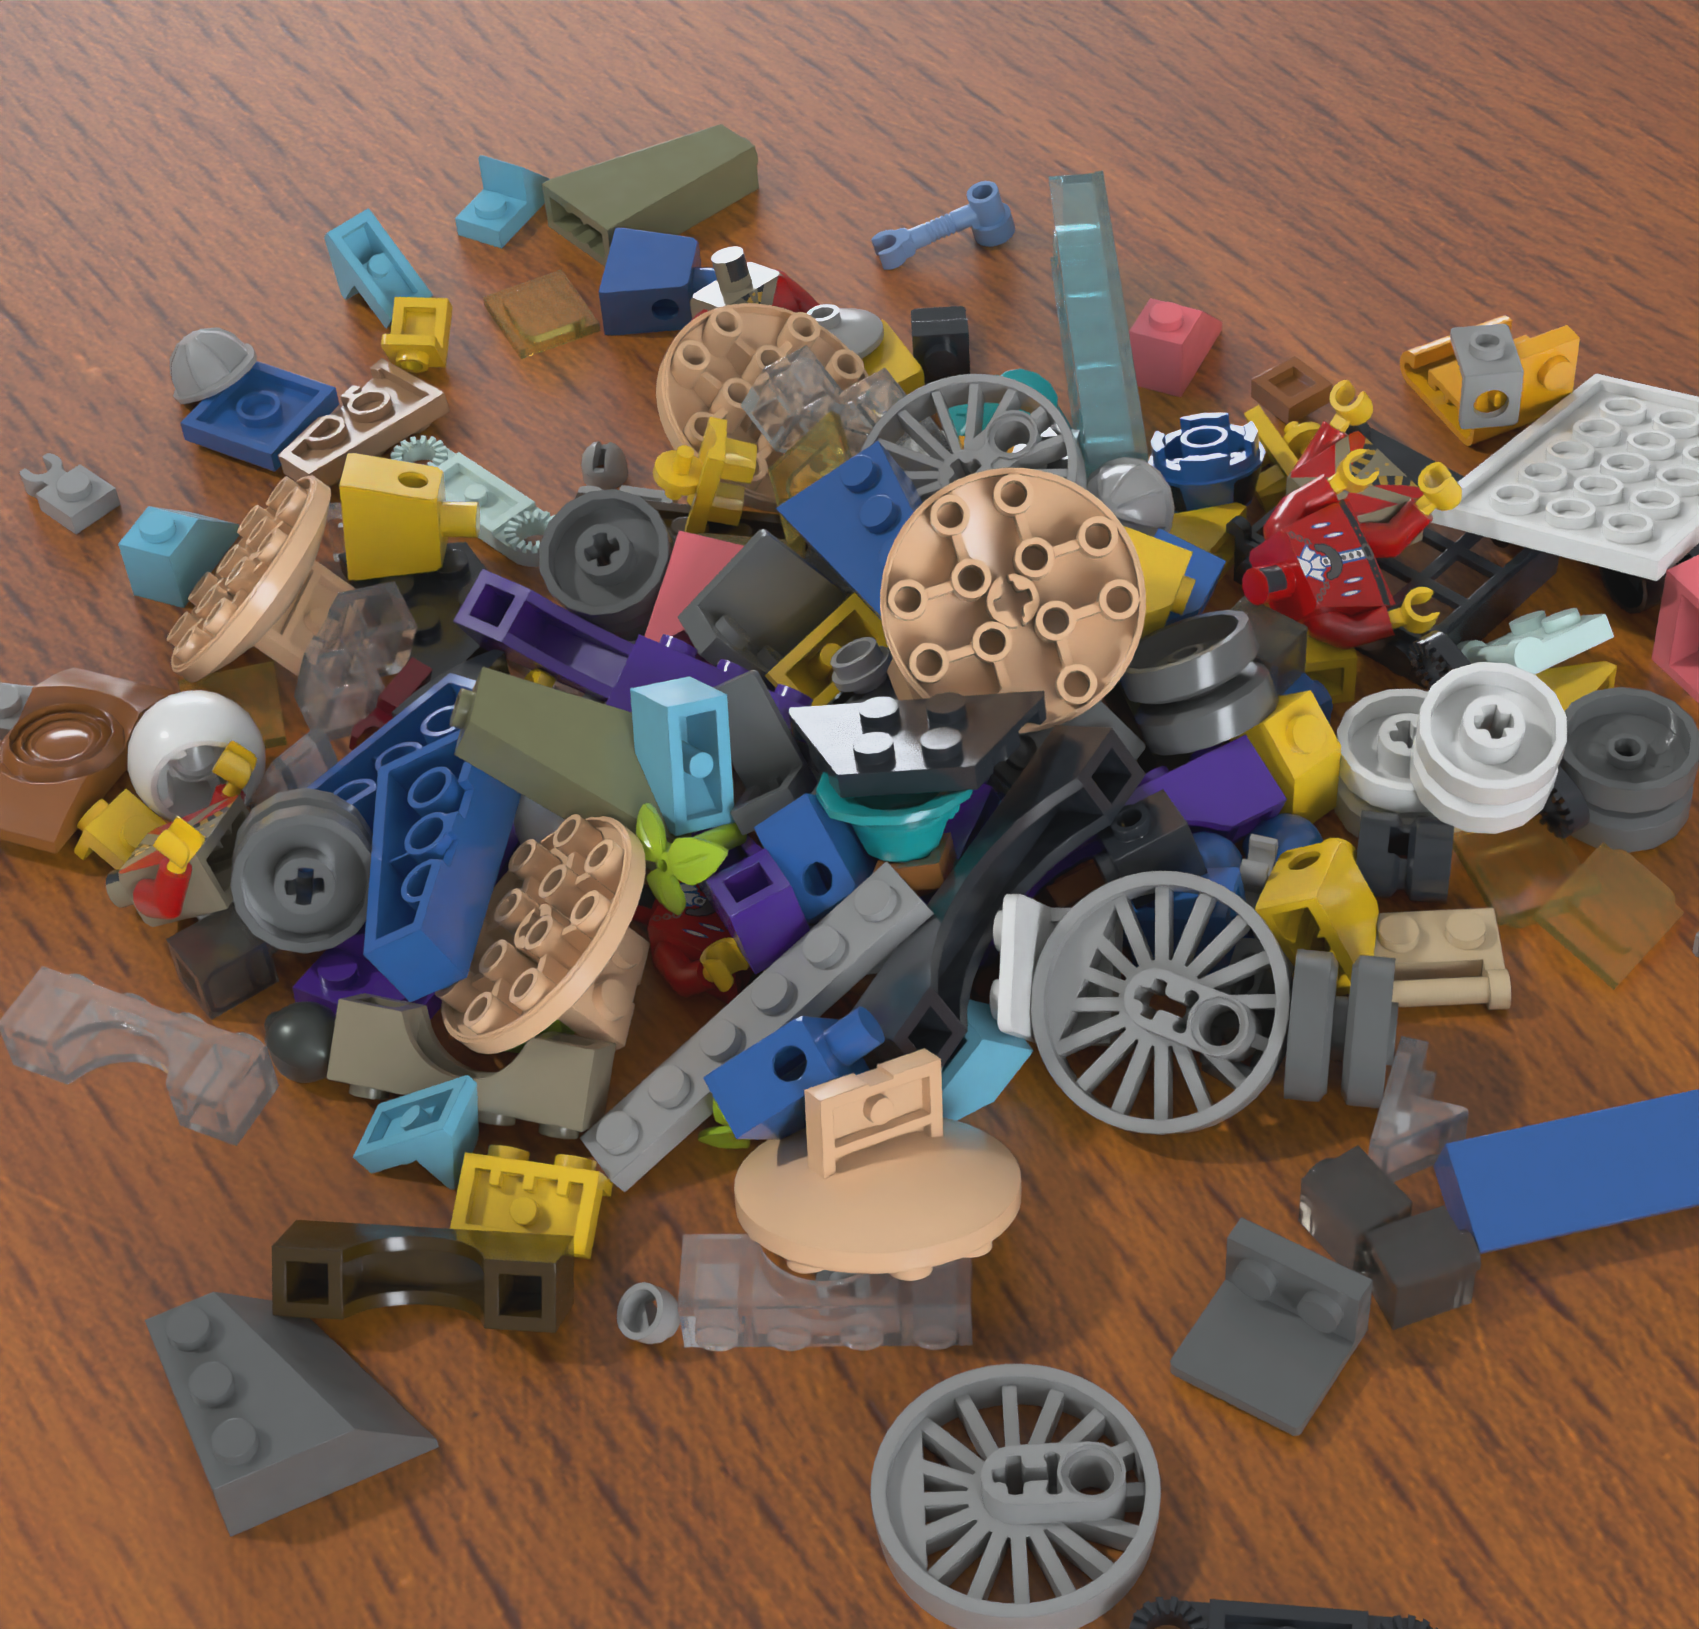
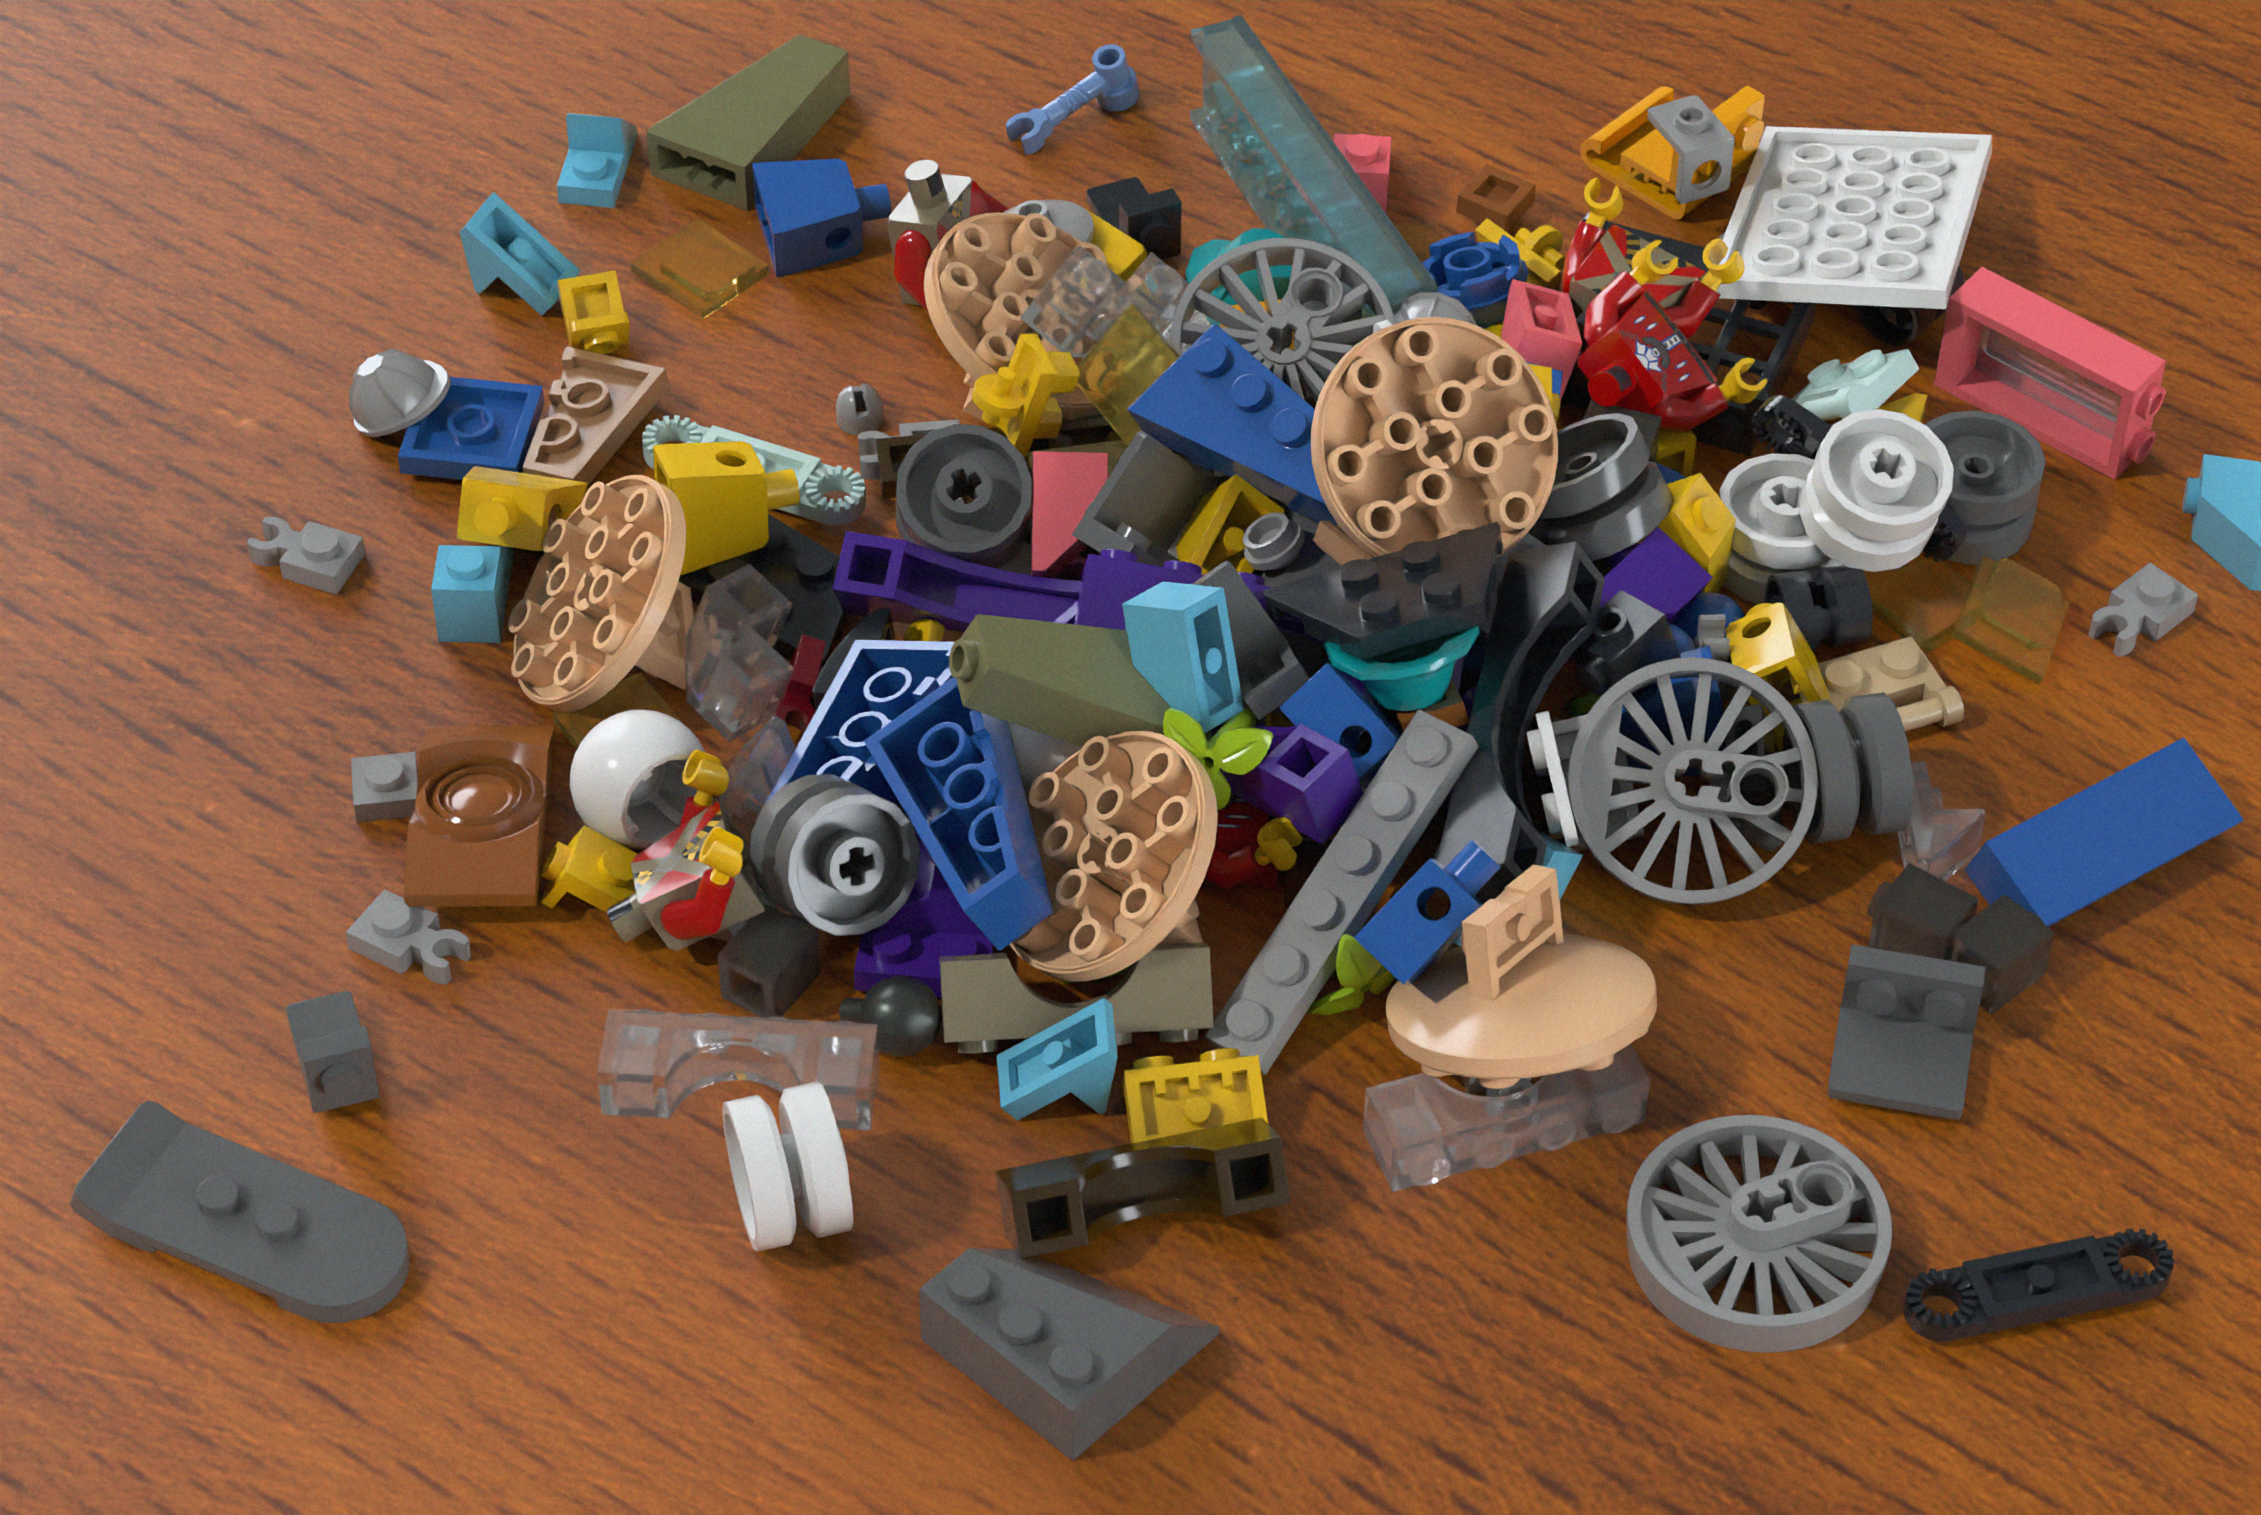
camera: 25 degrees left, 0 degrees up
(102, 1162) = (798, 1164): none -> white wheel
(224, 483) = (513, 506): none -> yellow torso
(644, 1321) = (1347, 1177): light grey hinge -> none
(1235, 522) = (1542, 327): none -> coral slope

